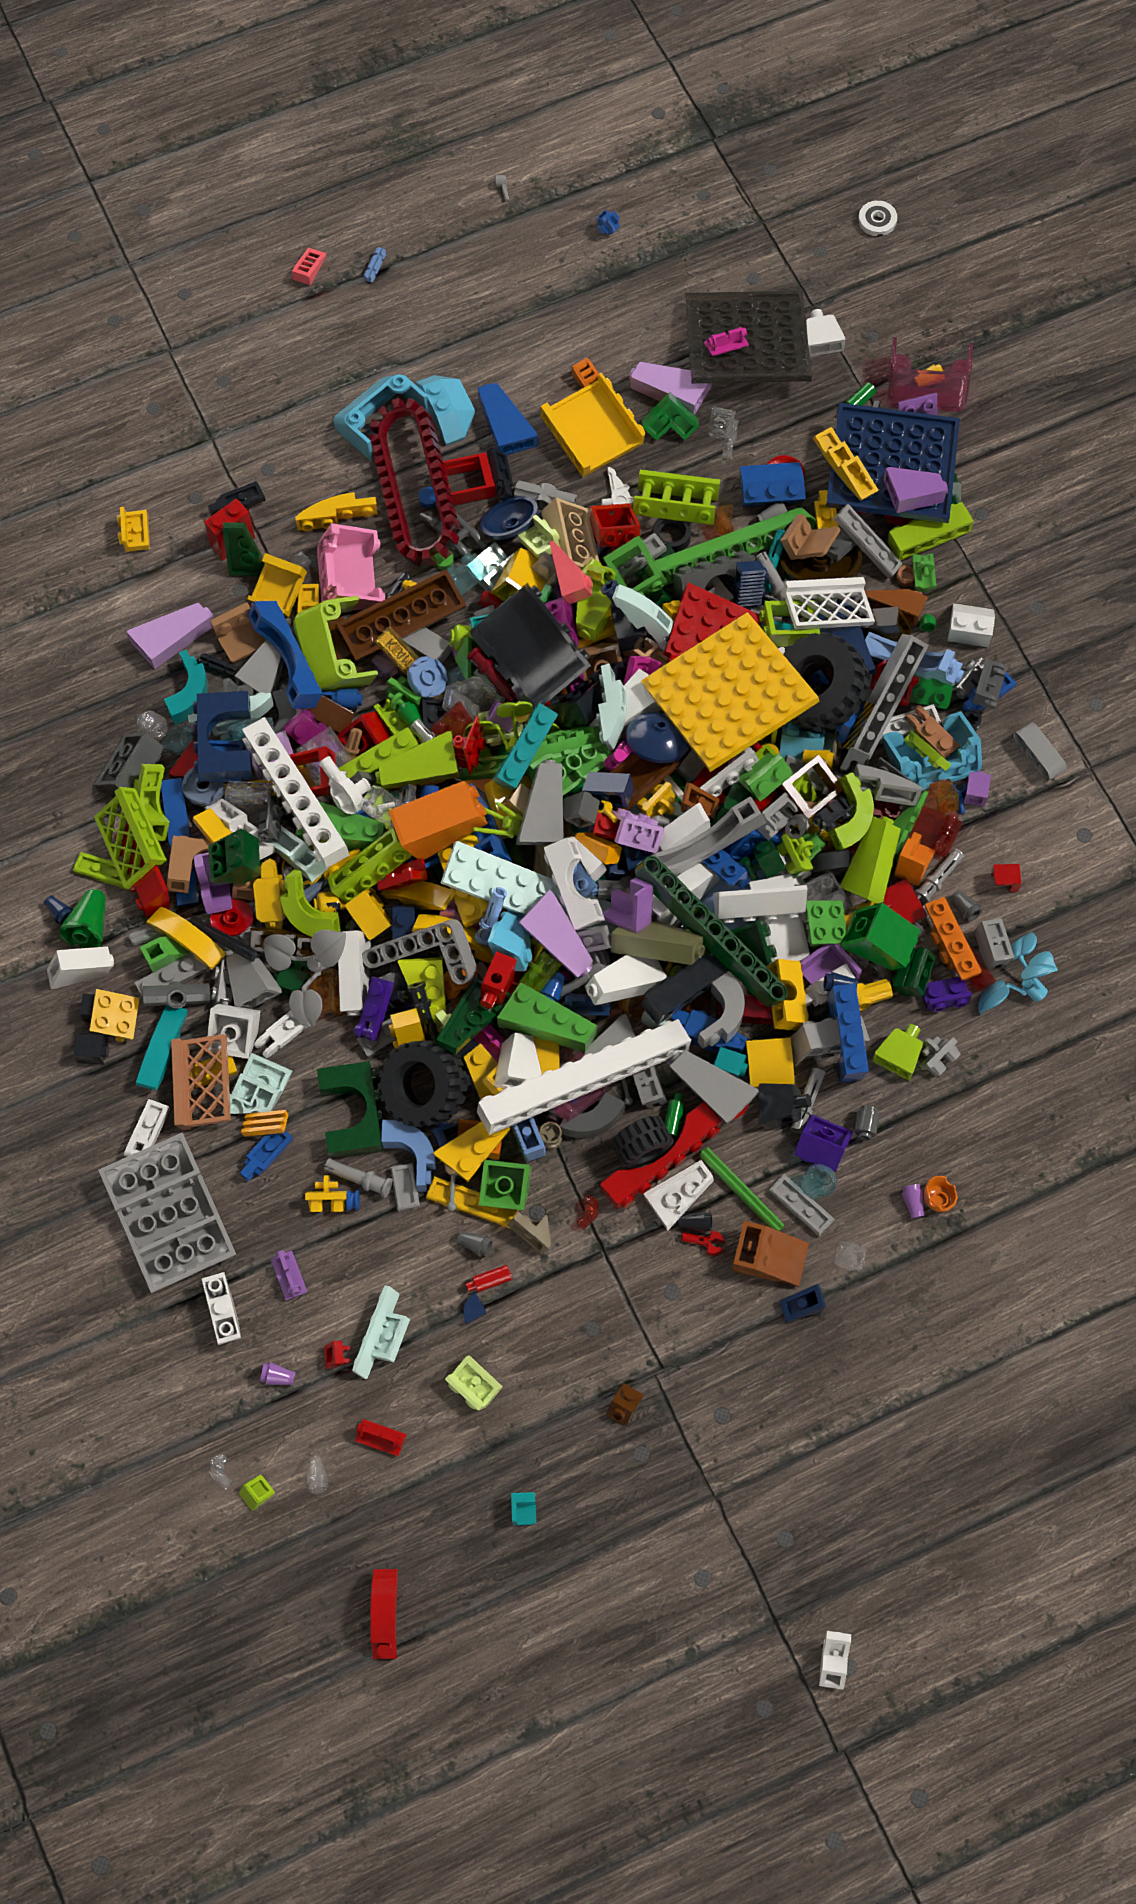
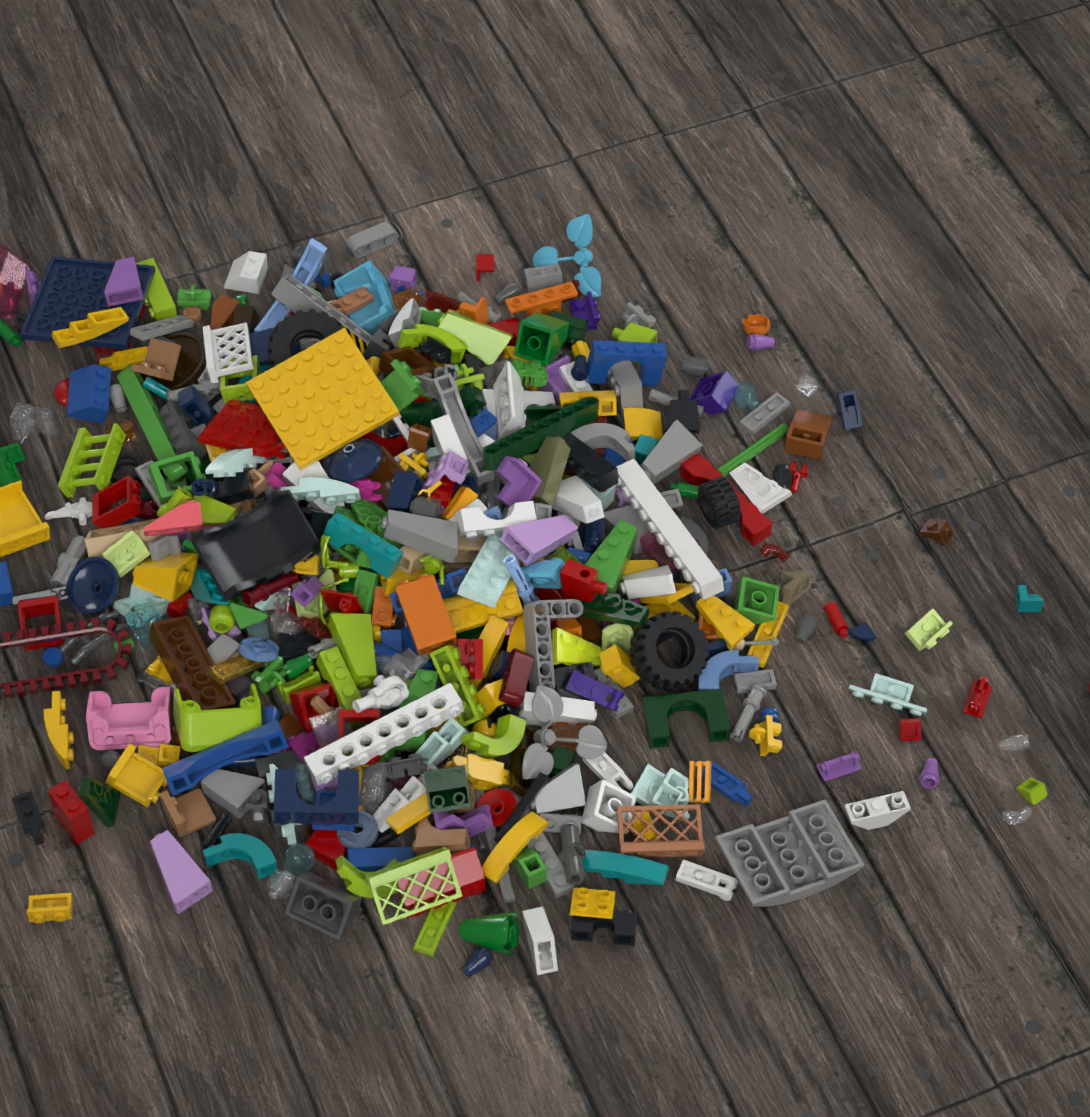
camera: 90 degrees left, 15 degrees down
(375, 920) = (516, 678): none -> dark red beam
(423, 1004) = (590, 652): black pin -> none
(925, 749) = (368, 303): lime hinge -> none

